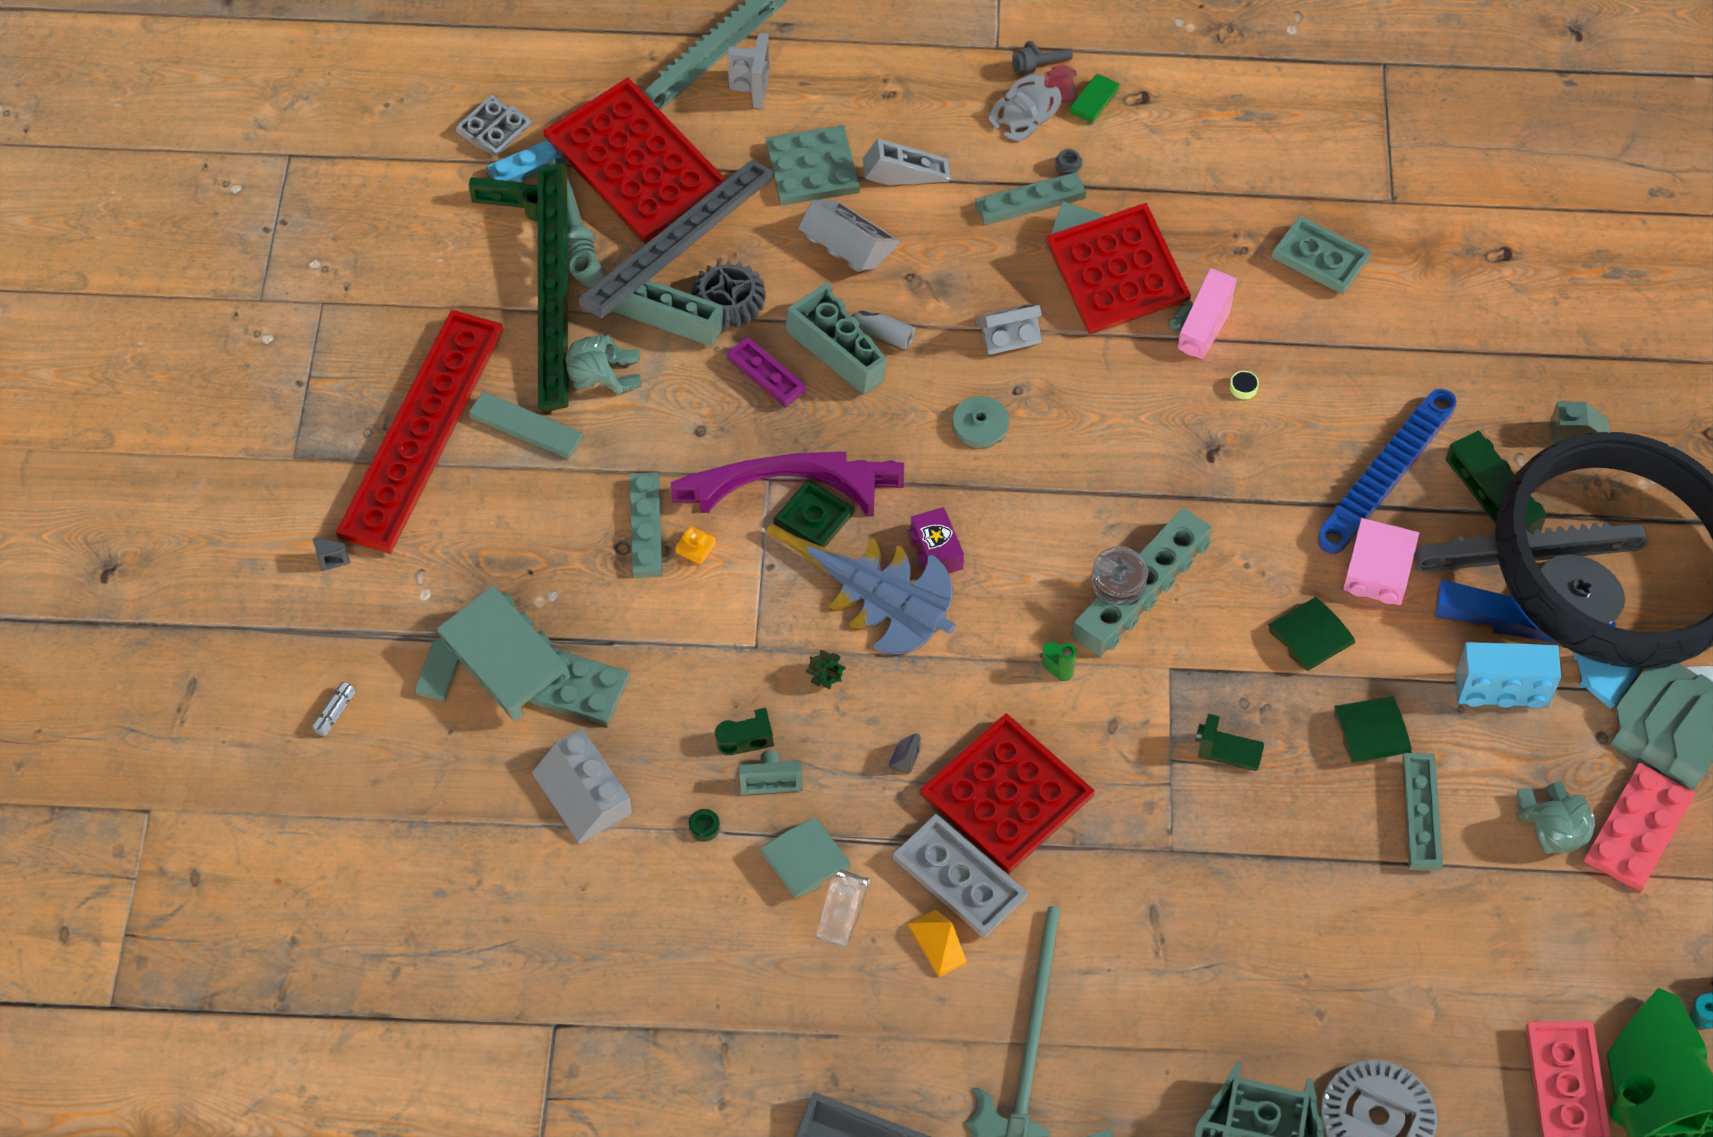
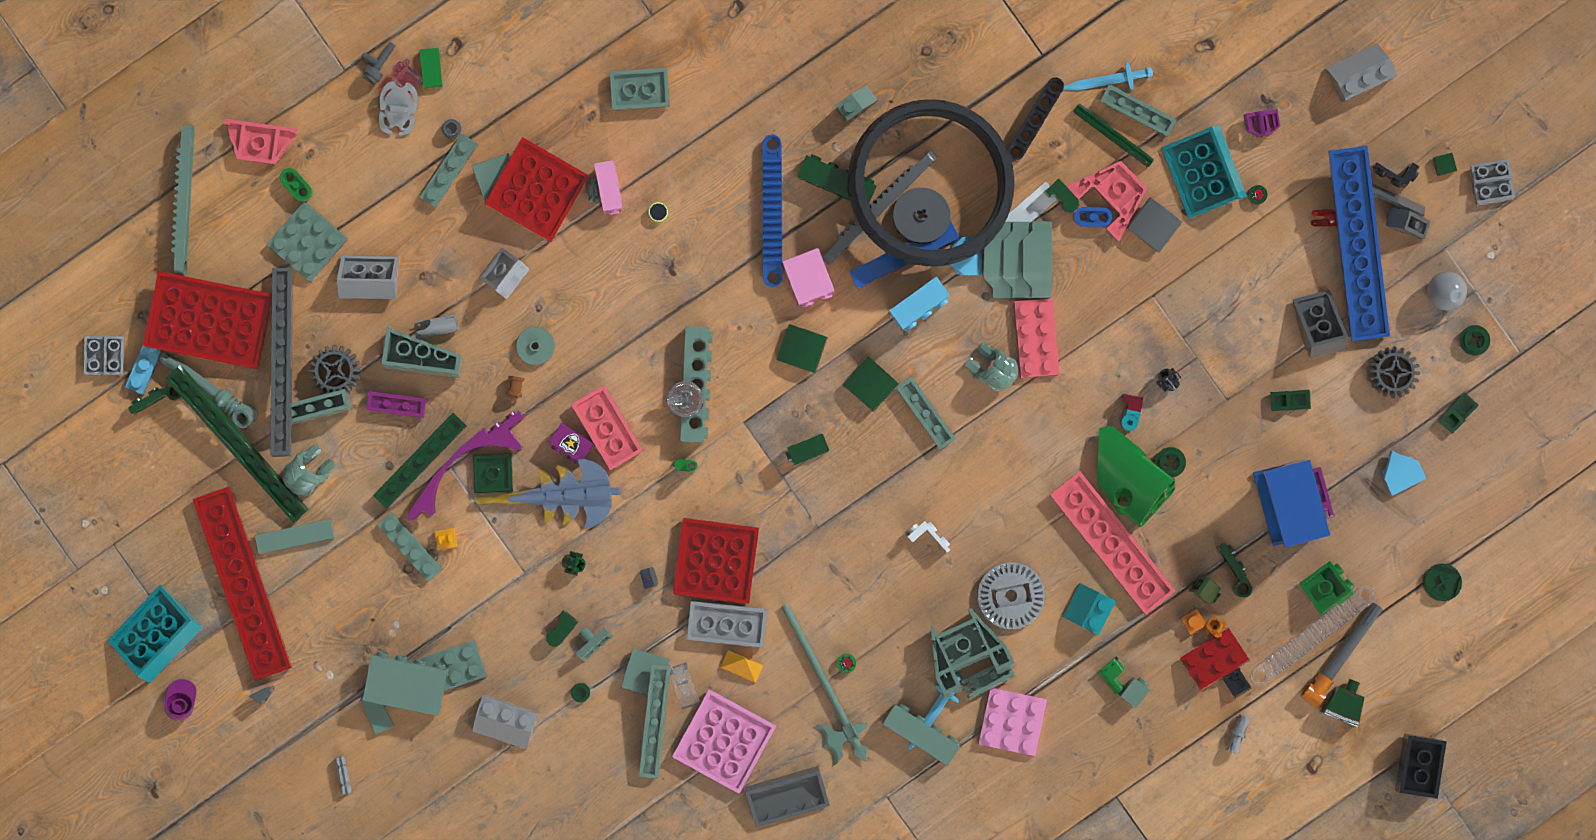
camera: 40 degrees left, 30 degrees up
(231, 494) = (180, 699): none -> magenta cap
(275, 413) = (154, 634): none -> teal slope
(740, 443) = (420, 460): none -> dark green plate
(750, 70) = (225, 206): light grey bracket -> none
(769, 917) = (654, 720): none -> sand green plate
(838, 1014) = (724, 741): none -> bright pink plate
(848, 47) = (259, 141): none -> coral wing
(849, 106) = (296, 185): none -> green plate
(903, 165) = (363, 204): light grey slope -> none
(920, 442) = (514, 386): none -> dark orange bush
(994, 557) = (607, 427): none -> coral plate
(1081, 1038) = (846, 663): none -> tile
(1316, 941) = (915, 531): none -> white bracket

